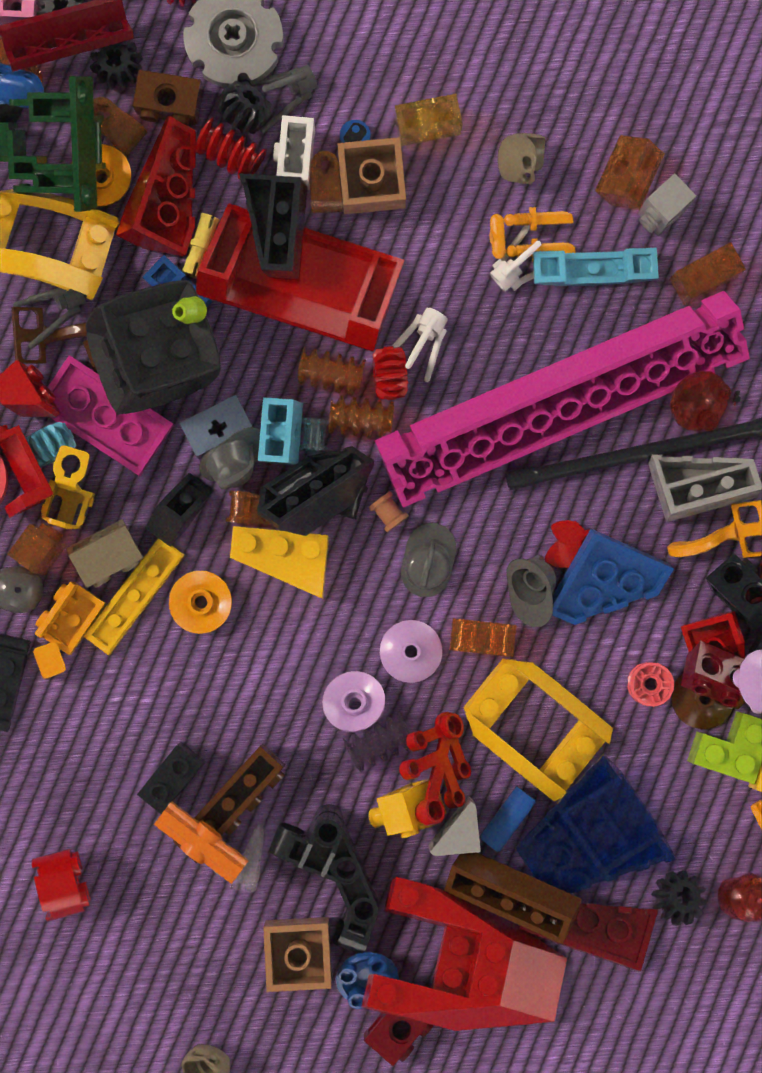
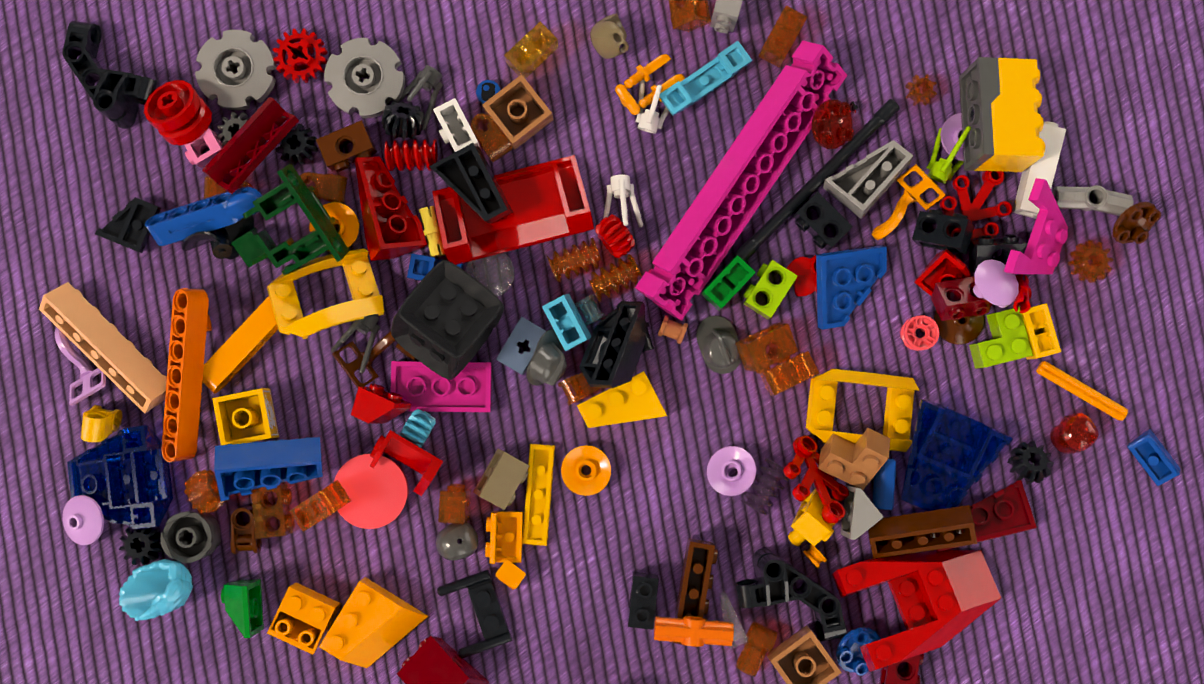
camera: 35 degrees left, 0 degrees up
(69, 491) = (451, 452): yellow piece -> none
(178, 509) = (531, 417): black slope -> none
(190, 310) = (458, 278): lime hose -> none
(235, 330) = (493, 272): none -> clear dish
(265, 902) = (760, 641): none -> clear orange piece
(384, 849) = (814, 556): none -> light orange bush
(393, 651) = (733, 413): lavender dish -> none
(461, 584) = (753, 348): none -> clear orange brick
(478, 499) = (728, 283): none -> green brick
(489, 774) = (857, 461): none -> medium nougat brick
(521, 540) = (774, 292): none -> lime brick
(531, 590) = (803, 320): dark grey piece -> none
(630, 497) = (826, 217): none -> black brick

